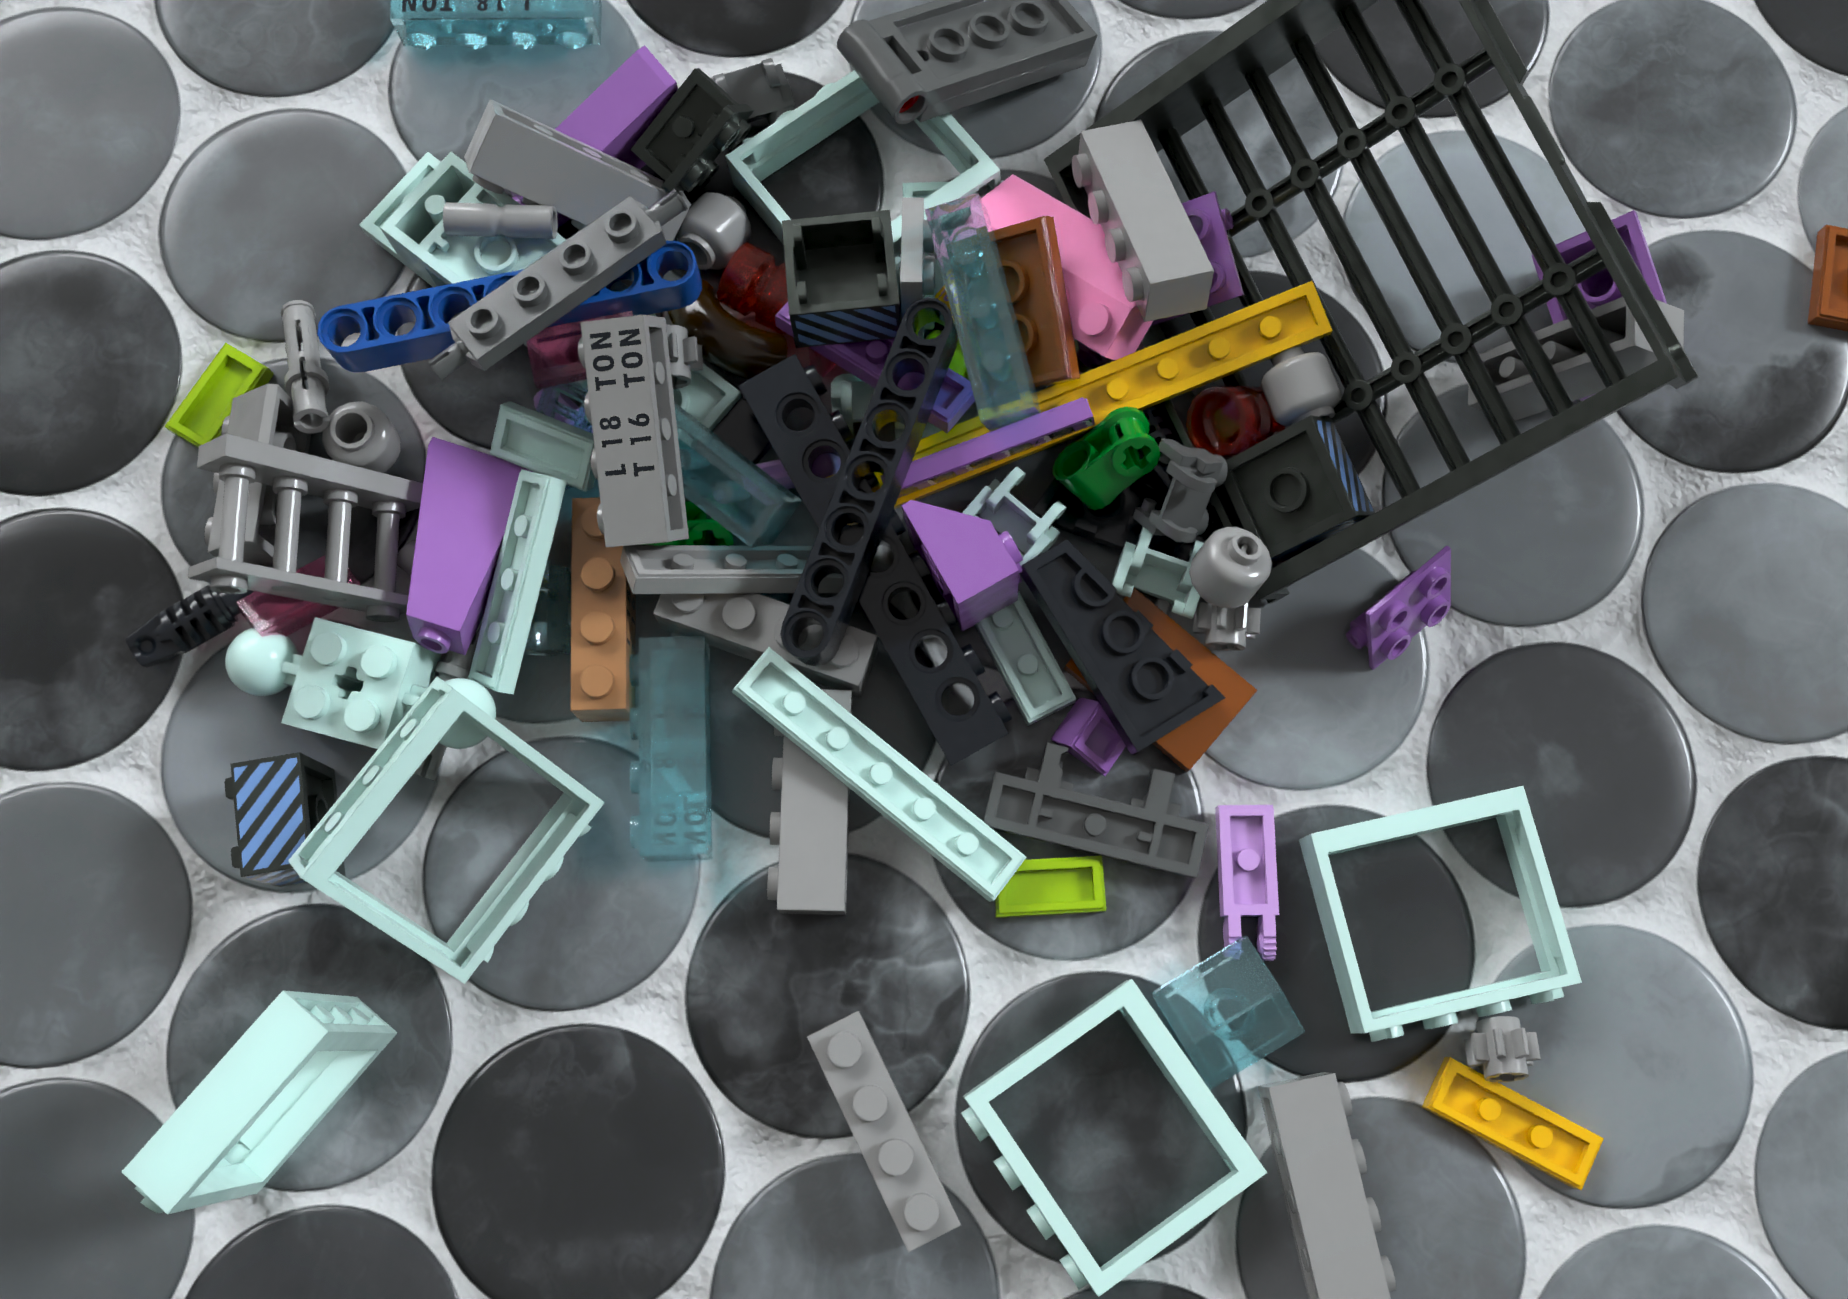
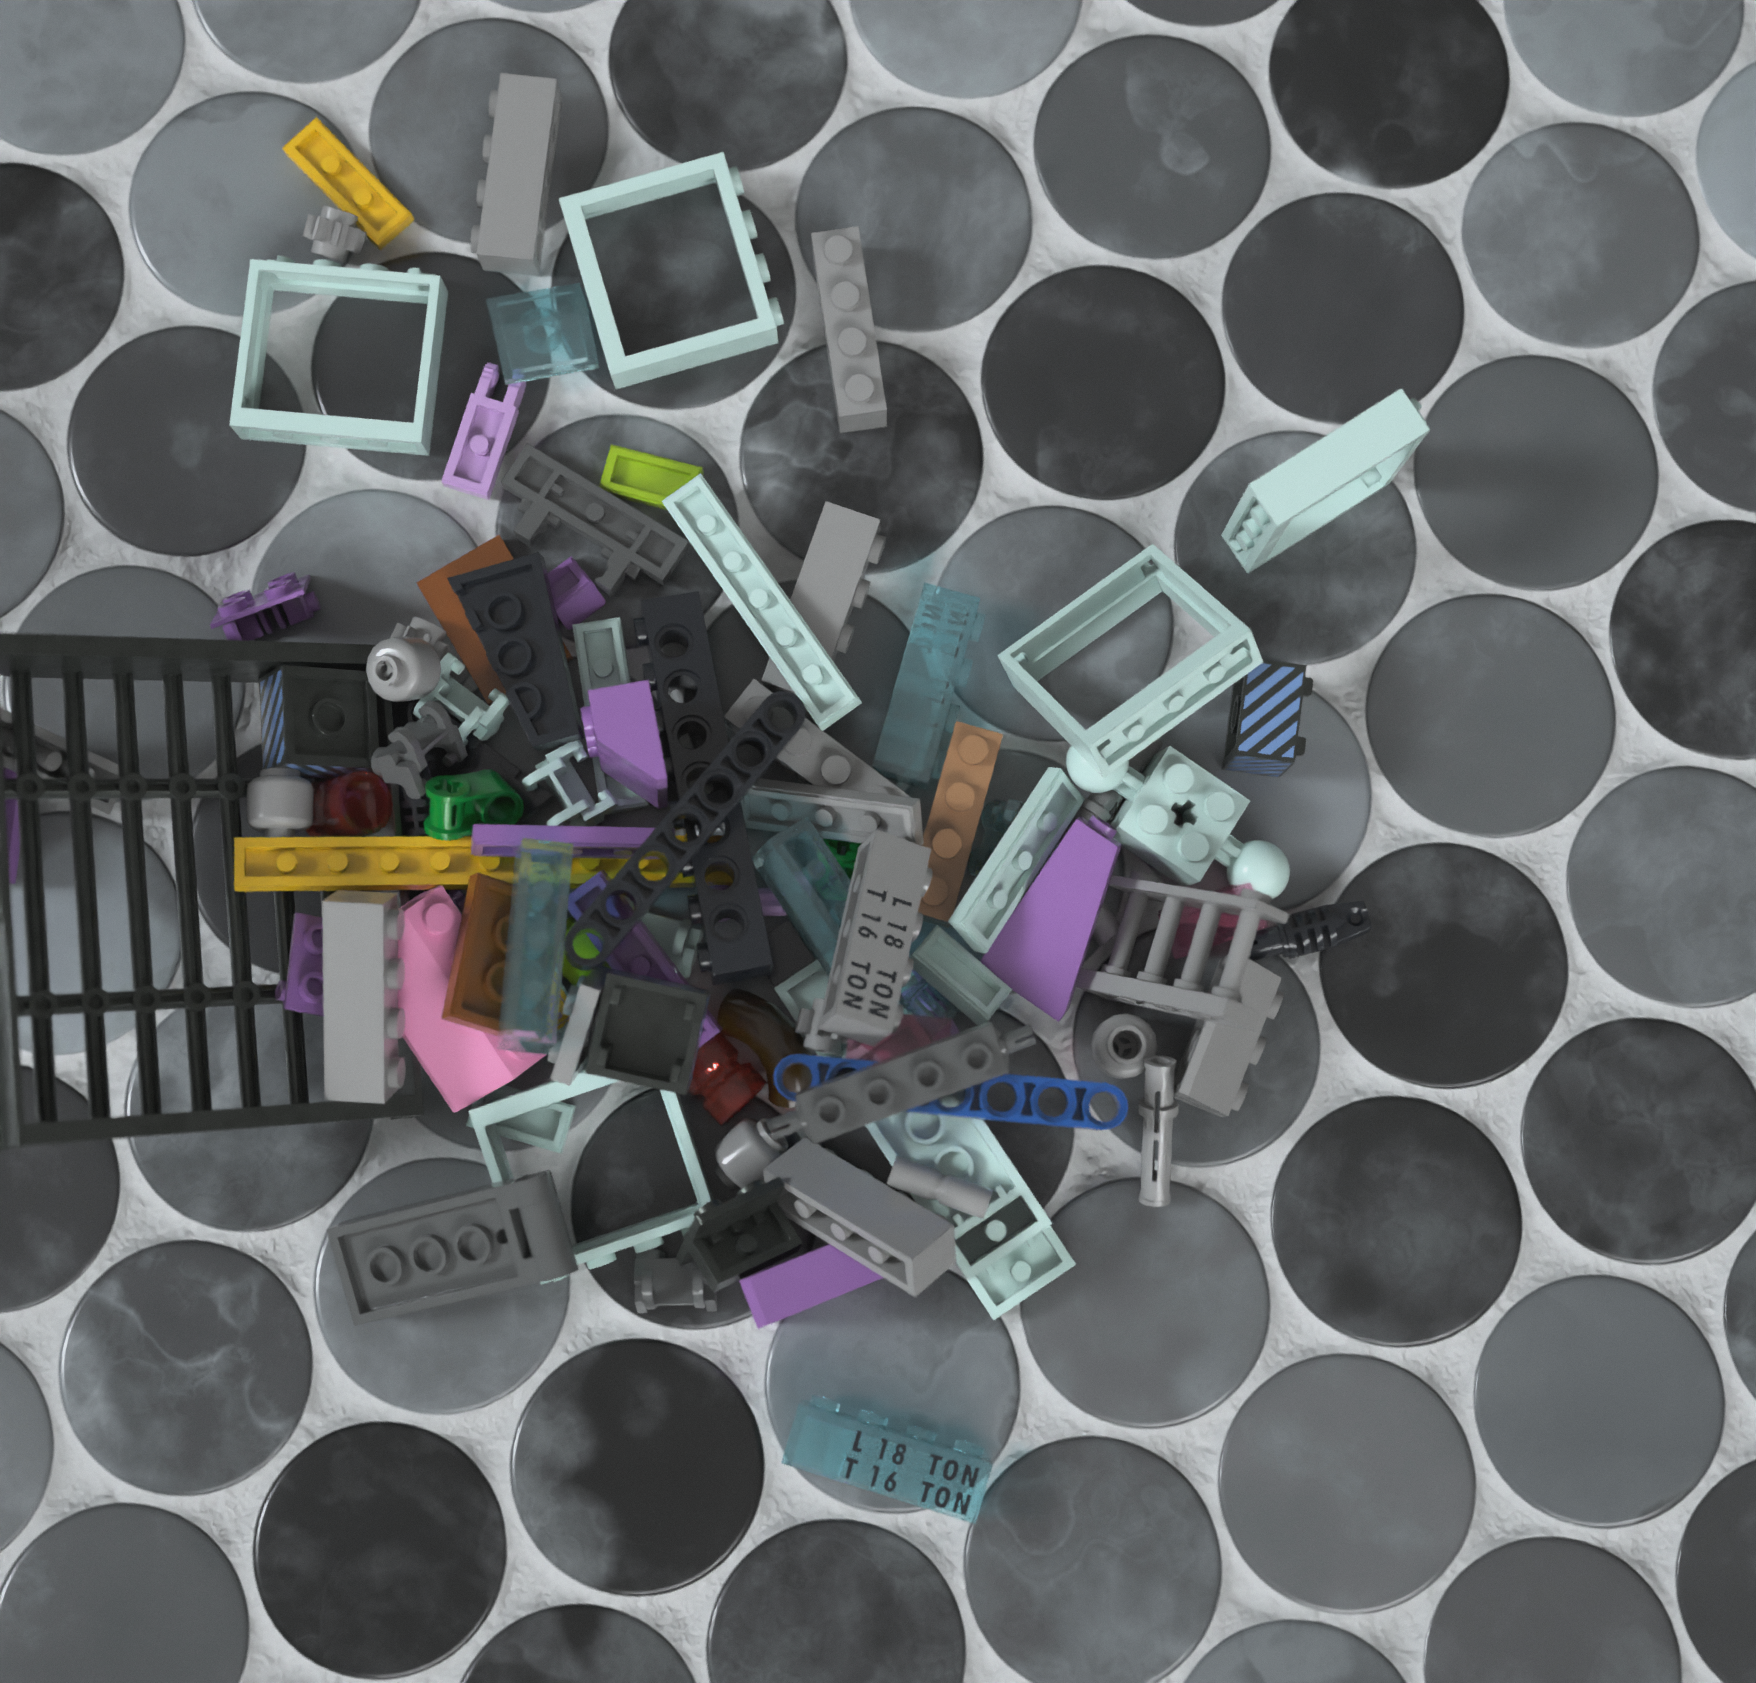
camera: 160 degrees left, 5 degrees up
(211, 398) = (1245, 1138): lime tile -> none

